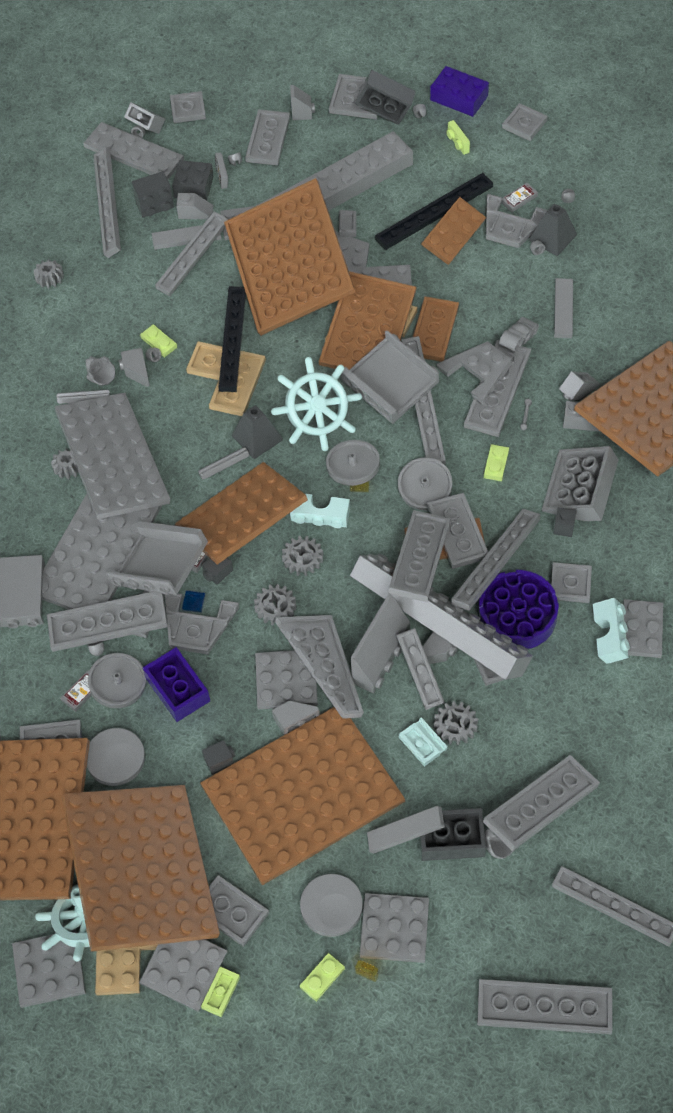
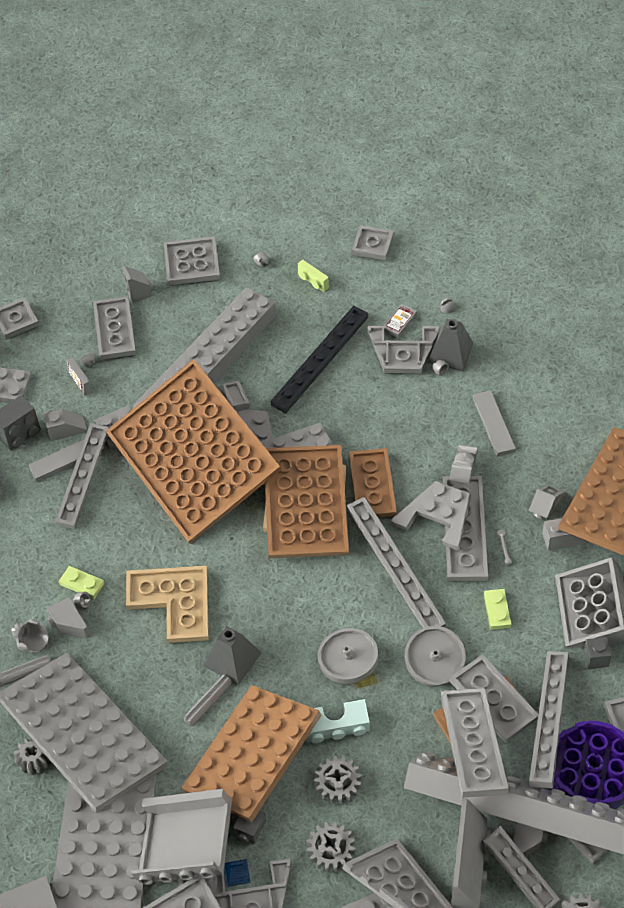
camera: 20 degrees left, 5 degrees down
(193, 178) = (51, 393): dark grey brick -> none
(232, 339) = (165, 559): black plate -> none
(316, 404) = (287, 604): light aqua piece -> none
(385, 97) = (224, 254): dark grey brick -> none
(391, 377) = (353, 550): light grey panel -> none
(453, 231) = (349, 374): medium nougat plate -> none
(459, 91) = (294, 228): dark purple brick -> none

